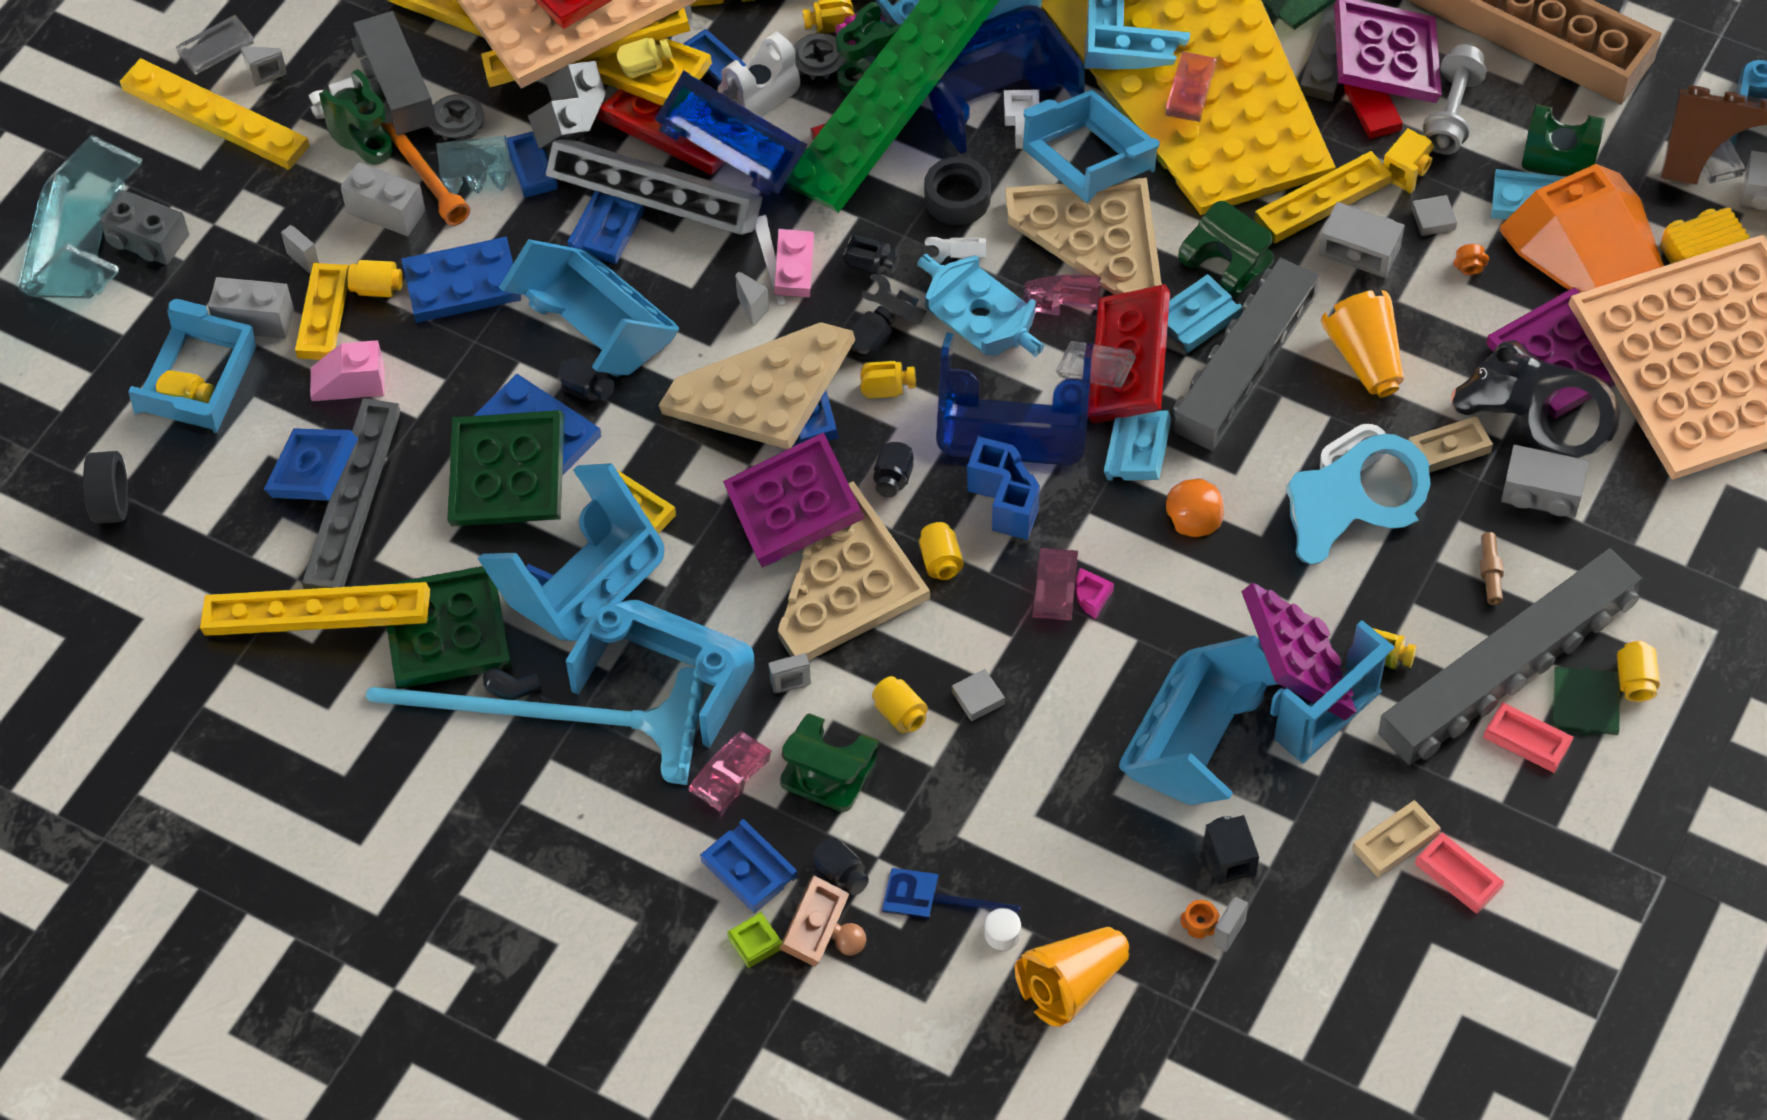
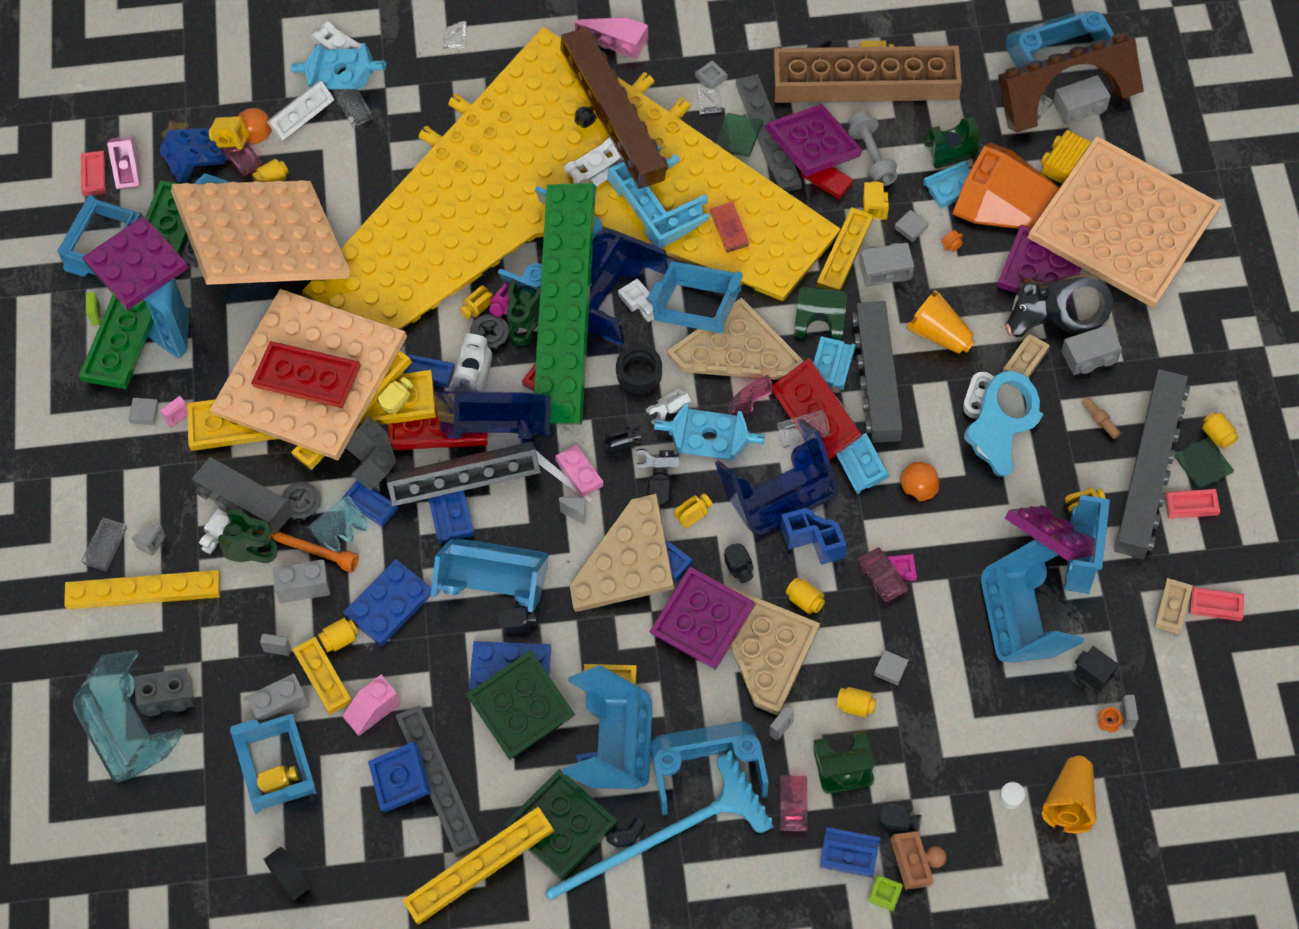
camera: 35 degrees left, 5 degrees up
(914, 892) = (948, 808): piece -> none

